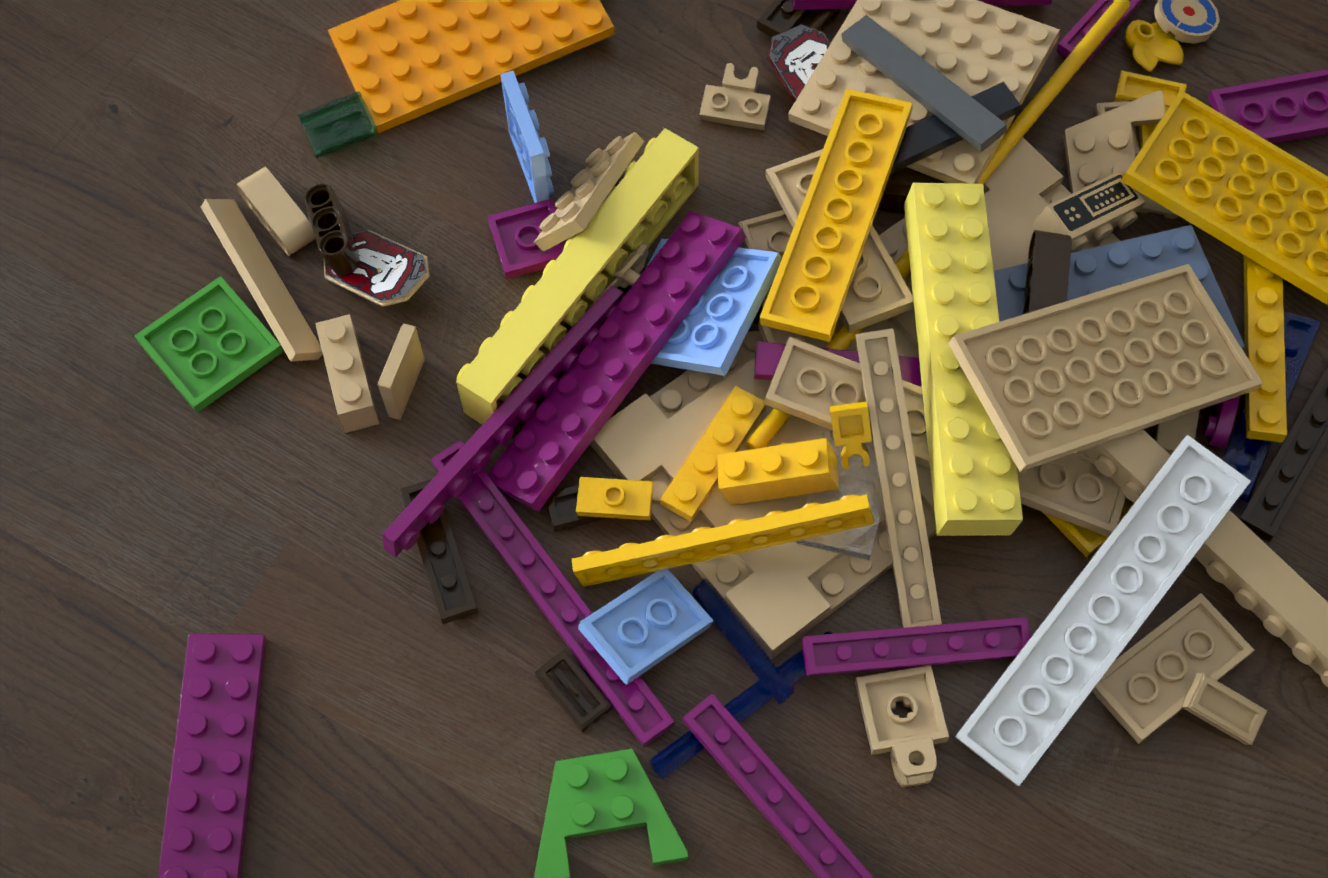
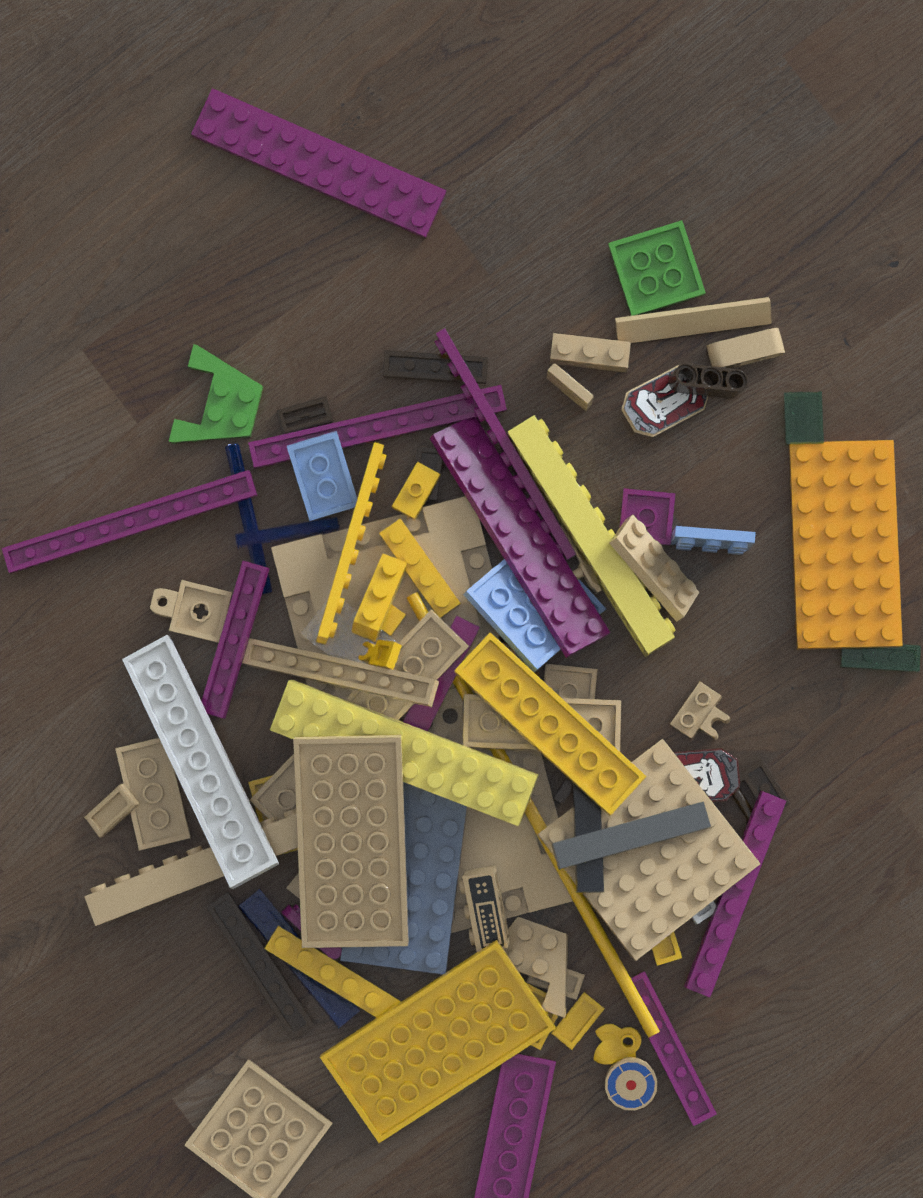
camera: 115 degrees right, 20 degrees up
(1047, 270) = (437, 841): dark brown beam -> none

